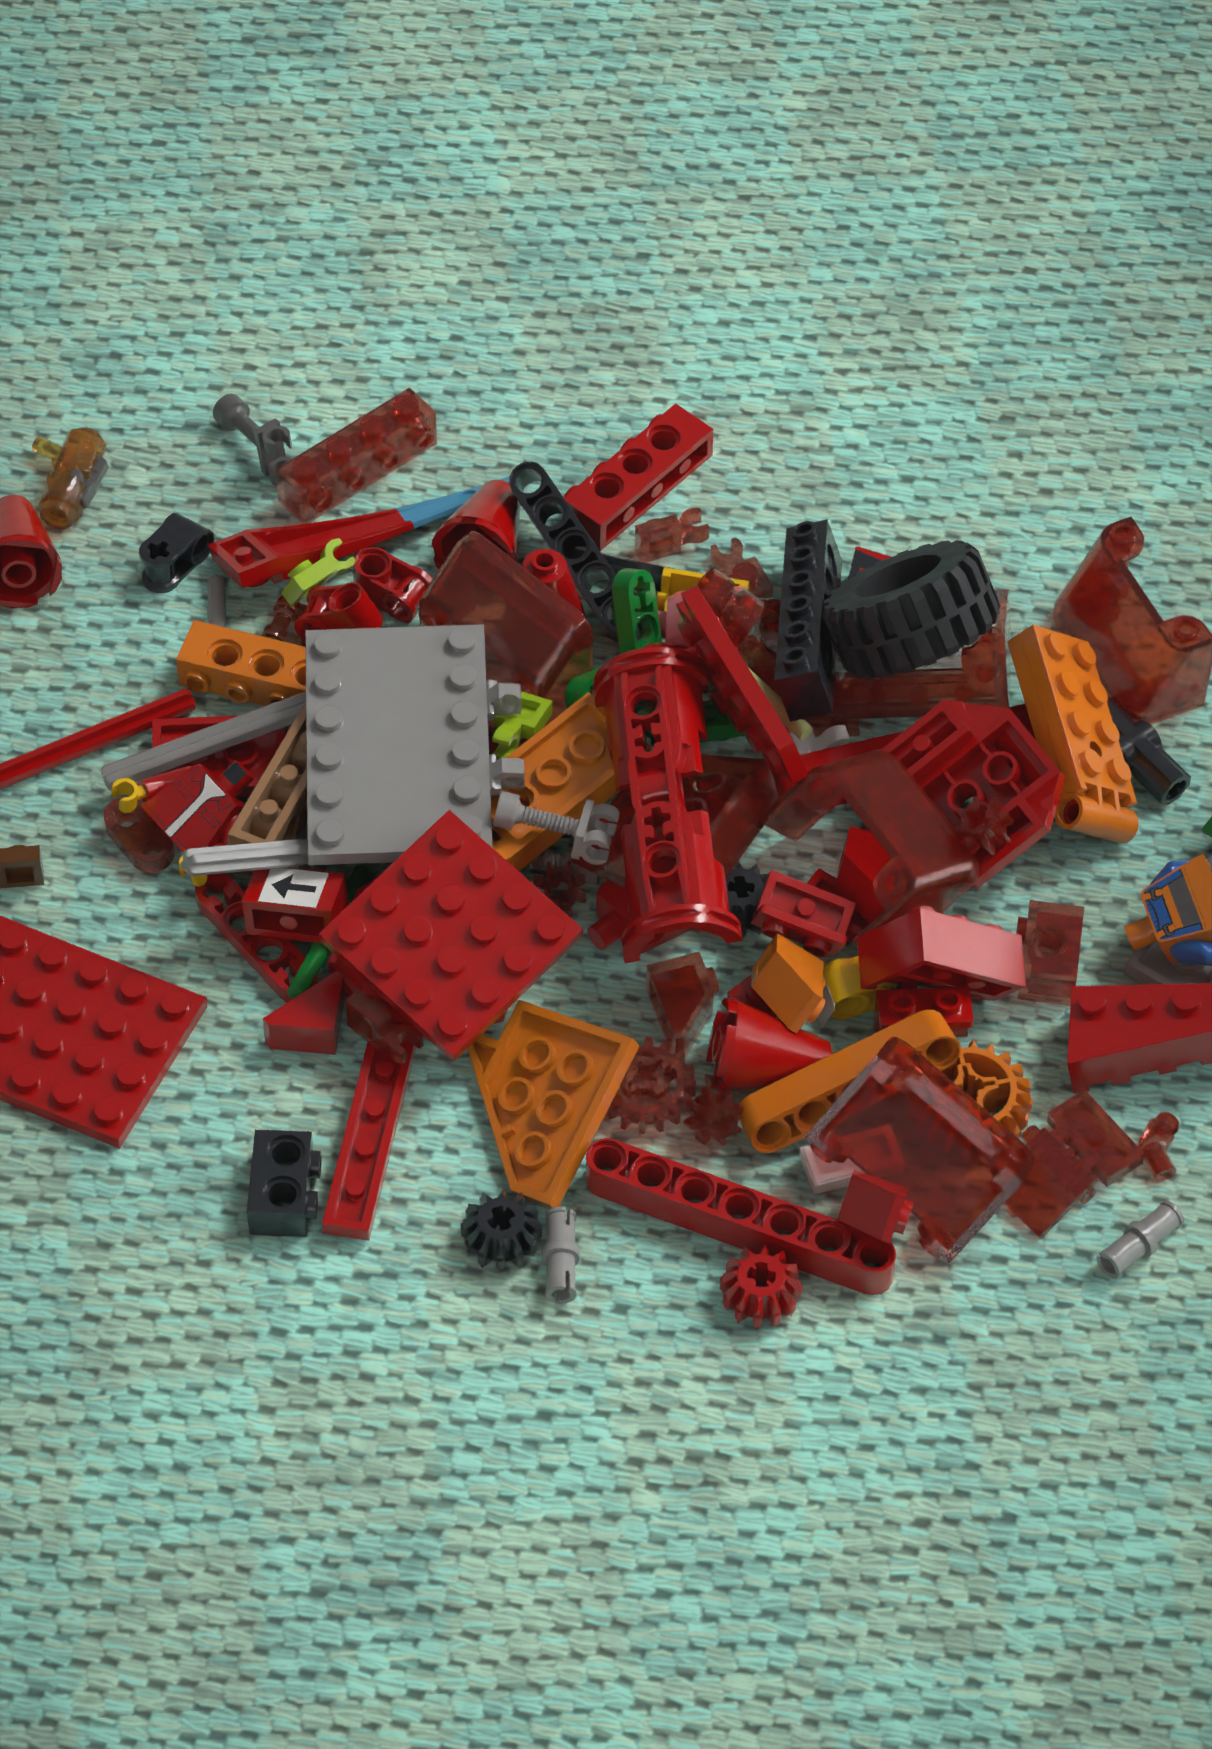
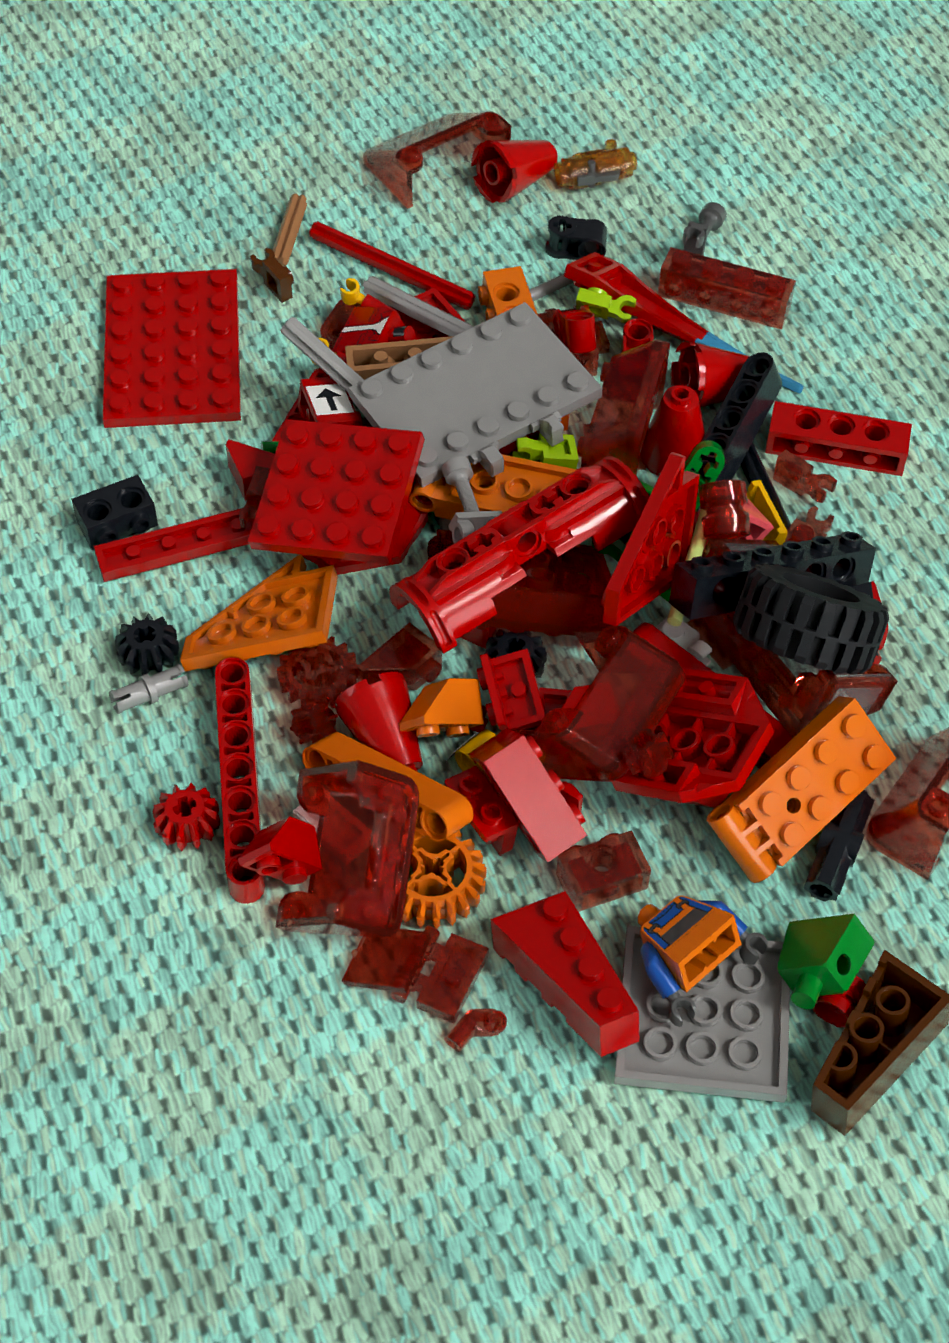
camera: 60 degrees right, 0 degrees up
(1140, 1239) = (377, 1050): light grey pin -> none

